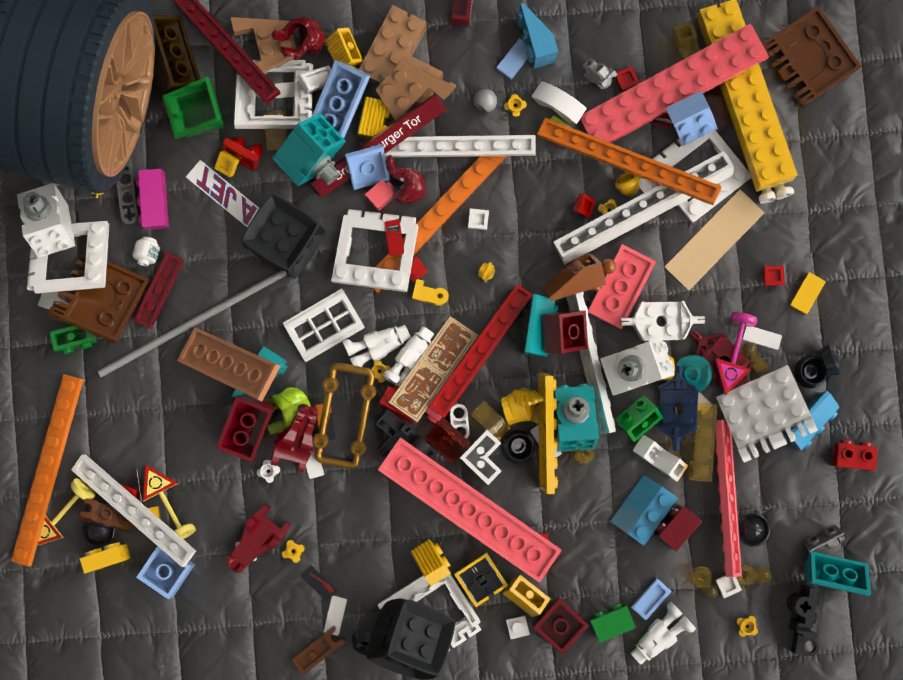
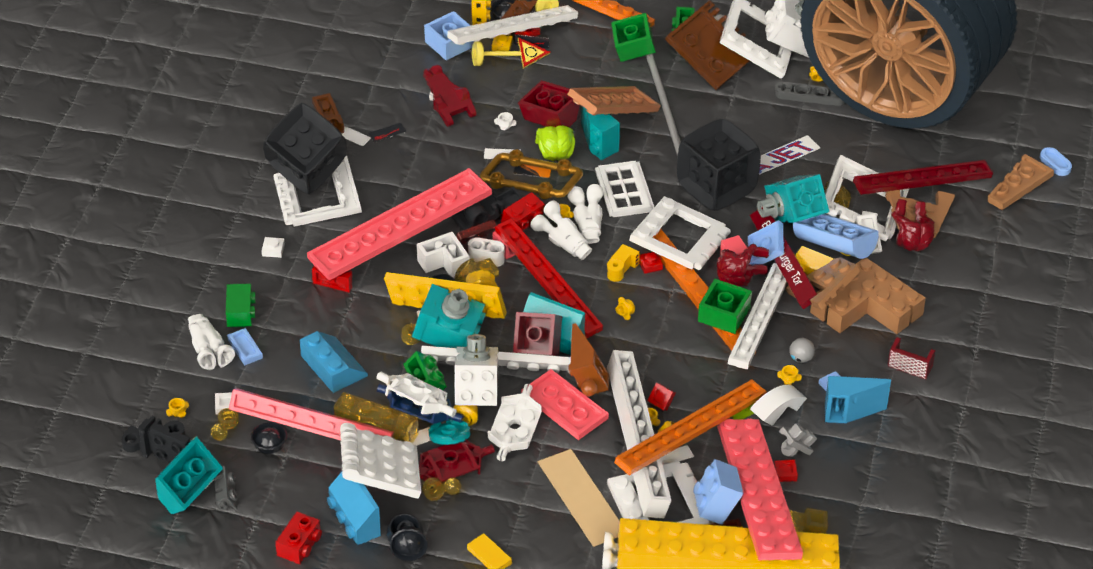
camera: 105 degrees right, 40 degrees down
(109, 382) = (633, 37): none -> green brick
(146, 251) = (745, 89): white head -> none
(152, 199) = (792, 104): dark pink brick -> none
(159, 290) = (705, 91): dark red plate -> none
(173, 55) = (930, 145): dark brown slope -> none
(193, 109) = (867, 141): green piece -> none
(226, 163) = (808, 158): yellow plate -> none
(247, 157) = (819, 166): red tile -> none
(288, 552) = (424, 120): yellow plate -> none
(296, 440) = (524, 135): dark red animal -> none
(343, 47) = (893, 258): yellow brick -> none
(394, 237) = (687, 244): red sticker -> none
(430, 562) = (366, 194): yellow brick -> none
(433, 369) = (547, 240): sticker -> none
(470, 176) = (724, 306): none -> green brick
(478, 219) = (681, 316): white plate -> none
(480, 579) = (329, 224): piece -> none
(526, 596) = (295, 251): yellow brick -> none
(560, 625) = (259, 267): dark red brick -> none
(660, 458) = (367, 387): white brick -> none
(677, 527) = (303, 371): dark red brick -> none
(681, 426) = (419, 392): none -> white plate
(710, 590) = (246, 383): clear yellow plate -> none
(730, 372) = (436, 451): dark pink piece -> none
(762, 337) = (460, 506): white sticker -> none
(773, 275) = (521, 528): red plate -> none

